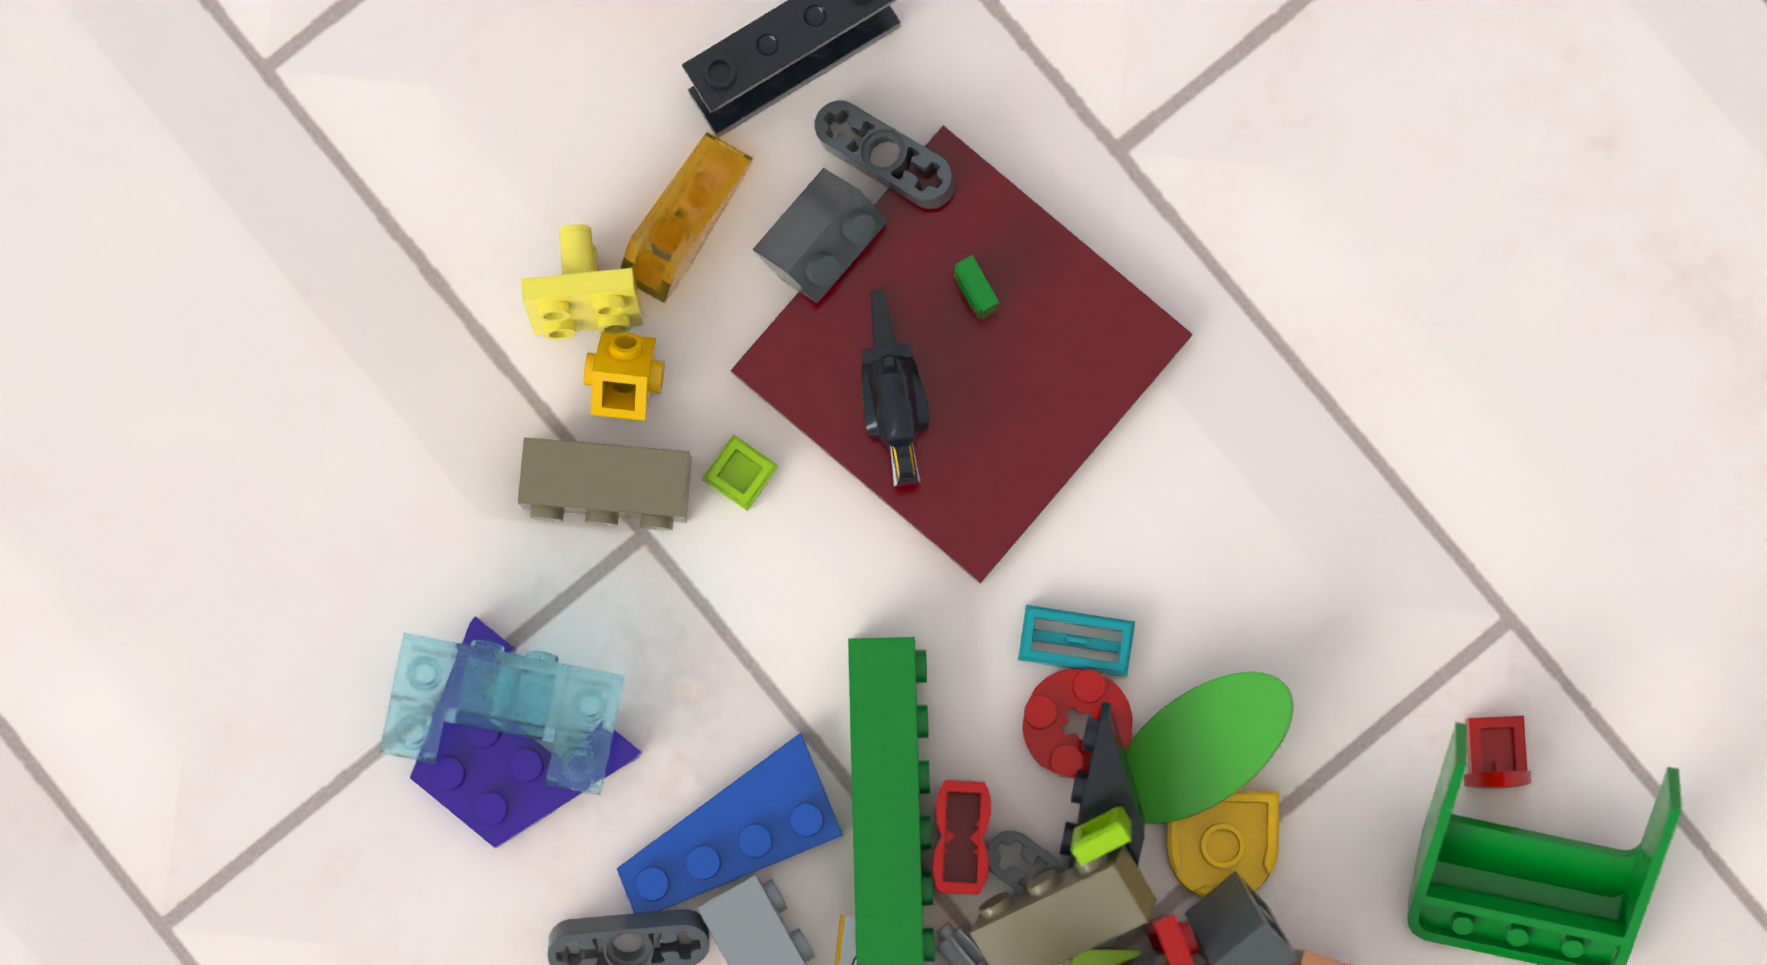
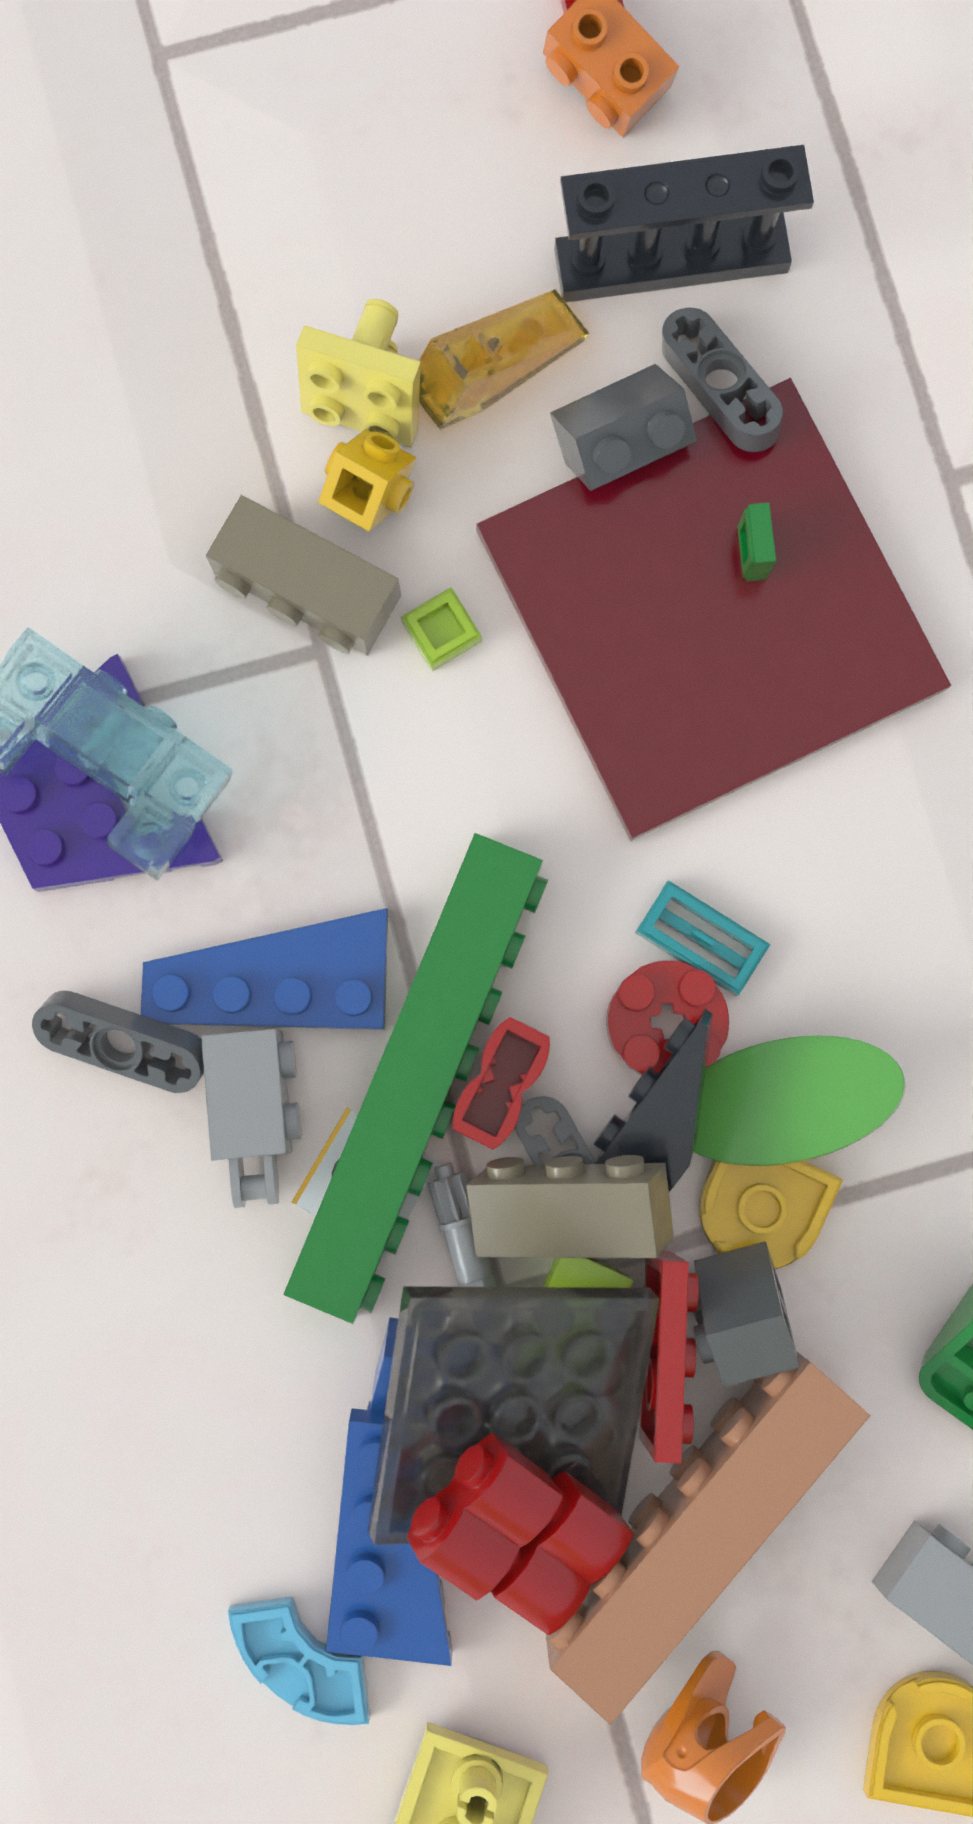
camera: 20 degrees right, 0 degrees up
(893, 395) = (626, 612): black animal -> none
(1101, 835) = (646, 1145): lime tile -> none

